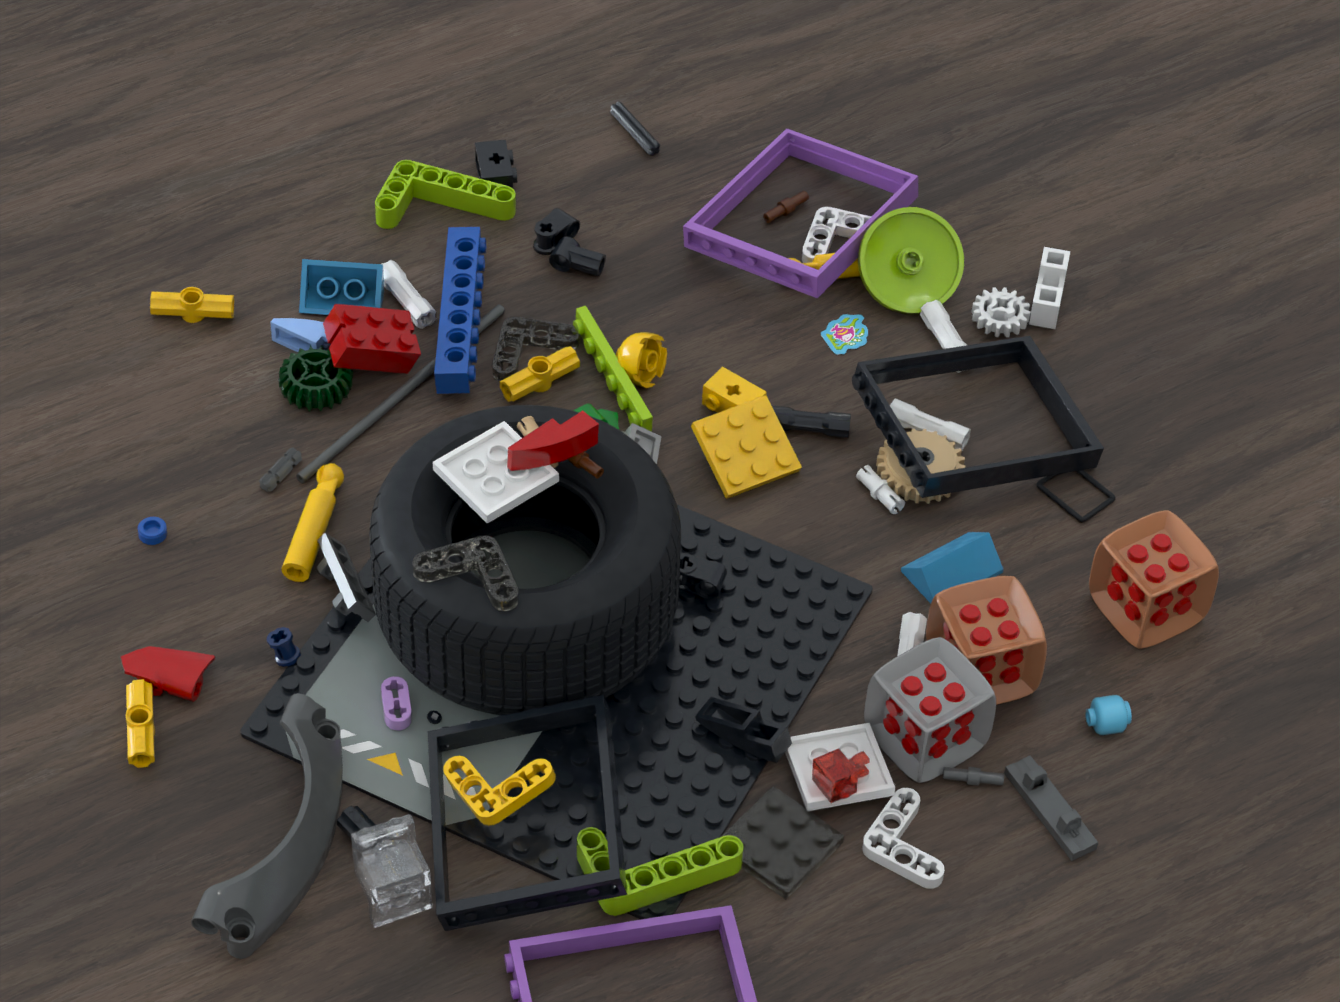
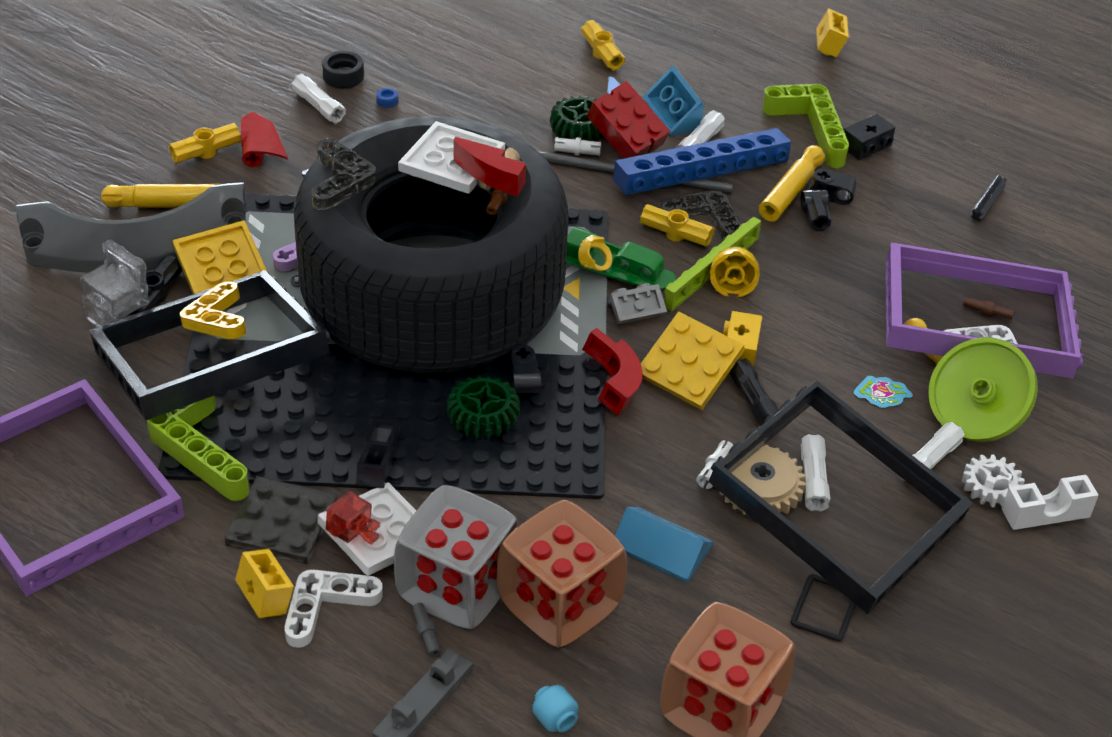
camera: 65 degrees right, 5 degrees down
(75, 533) = (343, 59): none -> black tyre
(122, 591) = (319, 99): none -> white axle
(216, 790) = (151, 195): none -> yellow piece
(311, 111) = (832, 33): none -> yellow brick
(355, 400) = (577, 146): none -> white pin
(383, 768) = (218, 256): none -> yellow plate
(529, 259) = (791, 184): none -> yellow piece
(729, 631) = (483, 407): none -> dark green gear
(733, 502) = (620, 364): none -> red arch
(872, 874) = (264, 583): none -> yellow brick

